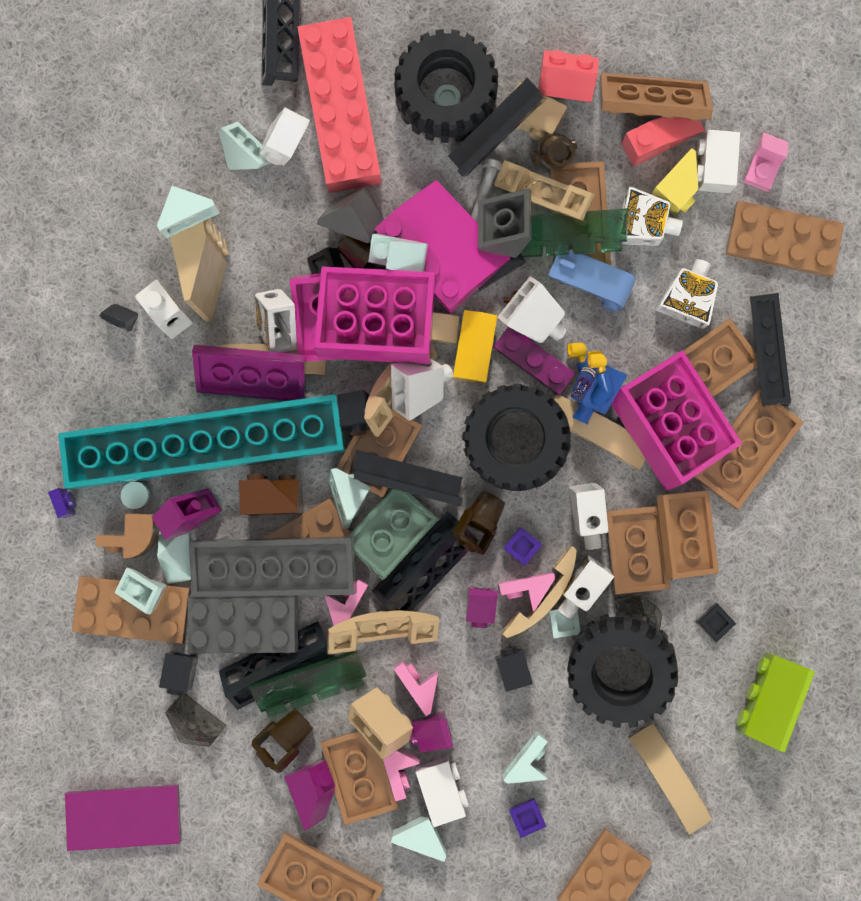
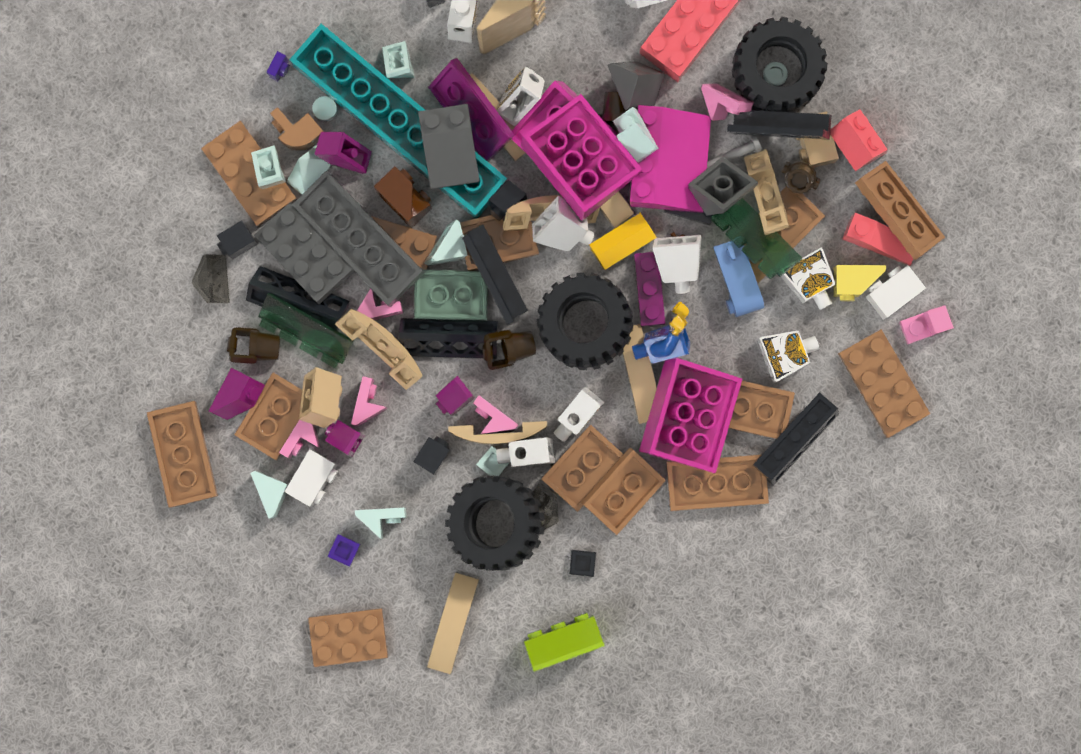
camera: 50 degrees right, 0 degrees up
(122, 817) = (112, 289): magenta tile -> none
(151, 397) = (397, 61): none -> light aqua slope
(264, 418) = (449, 146): none -> dark grey slope
(325, 258) = (592, 93): black slope -> none
(430, 159) = (721, 101): none -> bright pink slope
(522, 546) = (518, 390): dark purple plate -> none

